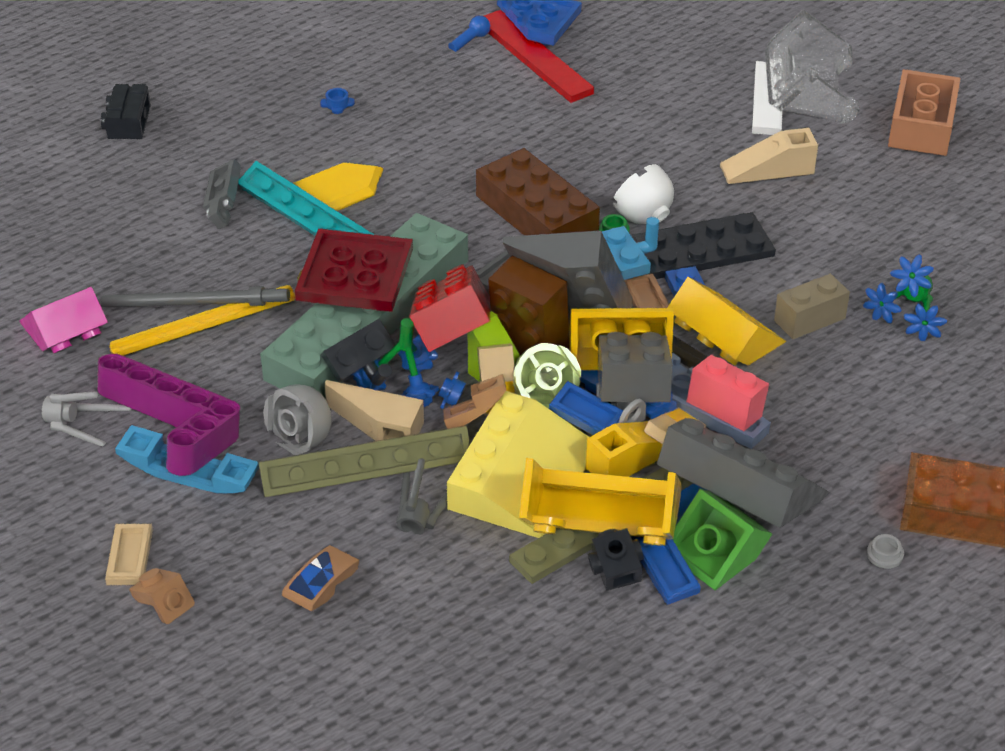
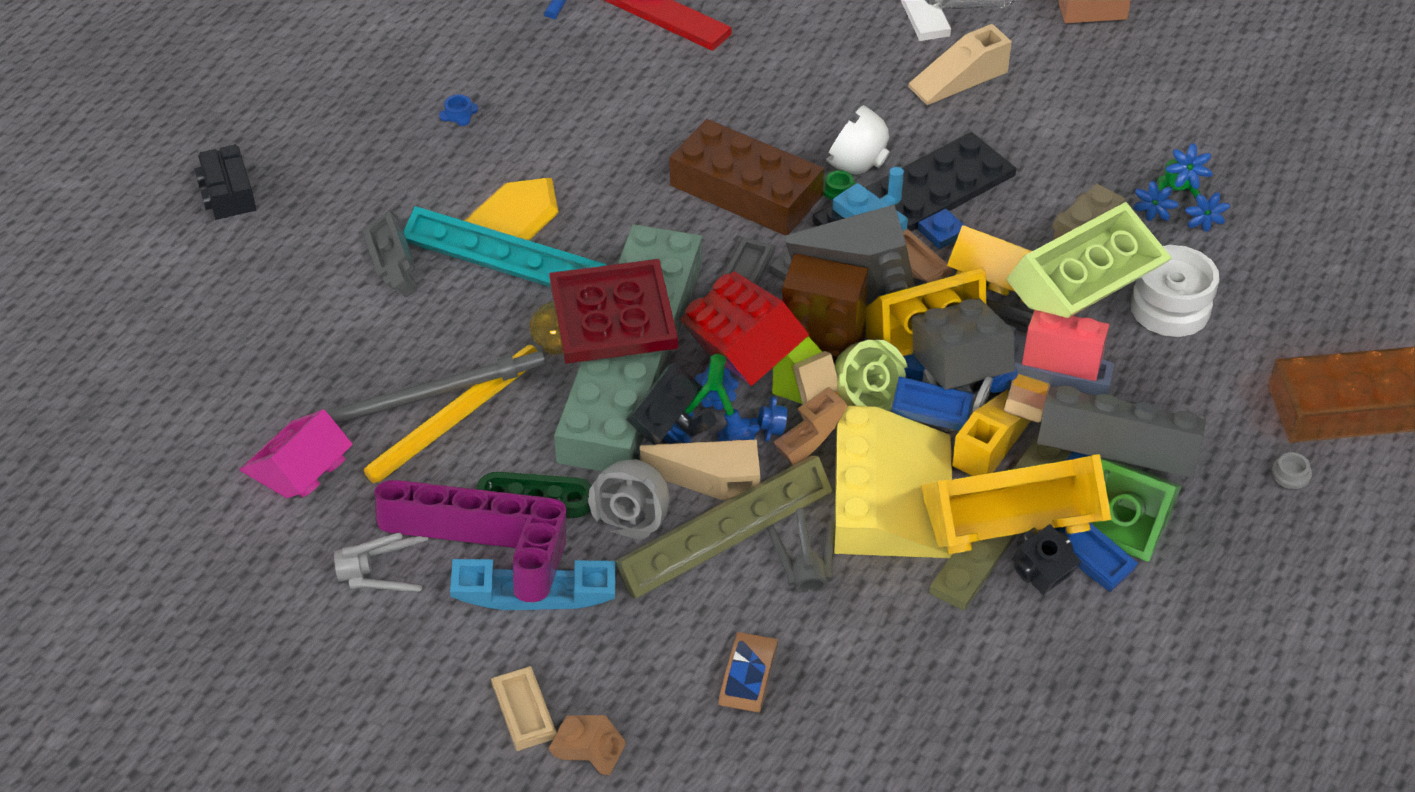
camera: 20 degrees left, 5 degrees up
(249, 398) = (545, 486): none -> dark green plate
(771, 326) = (1088, 263): none -> yellowish green slope
(856, 377) = (1176, 295): none -> white wheel

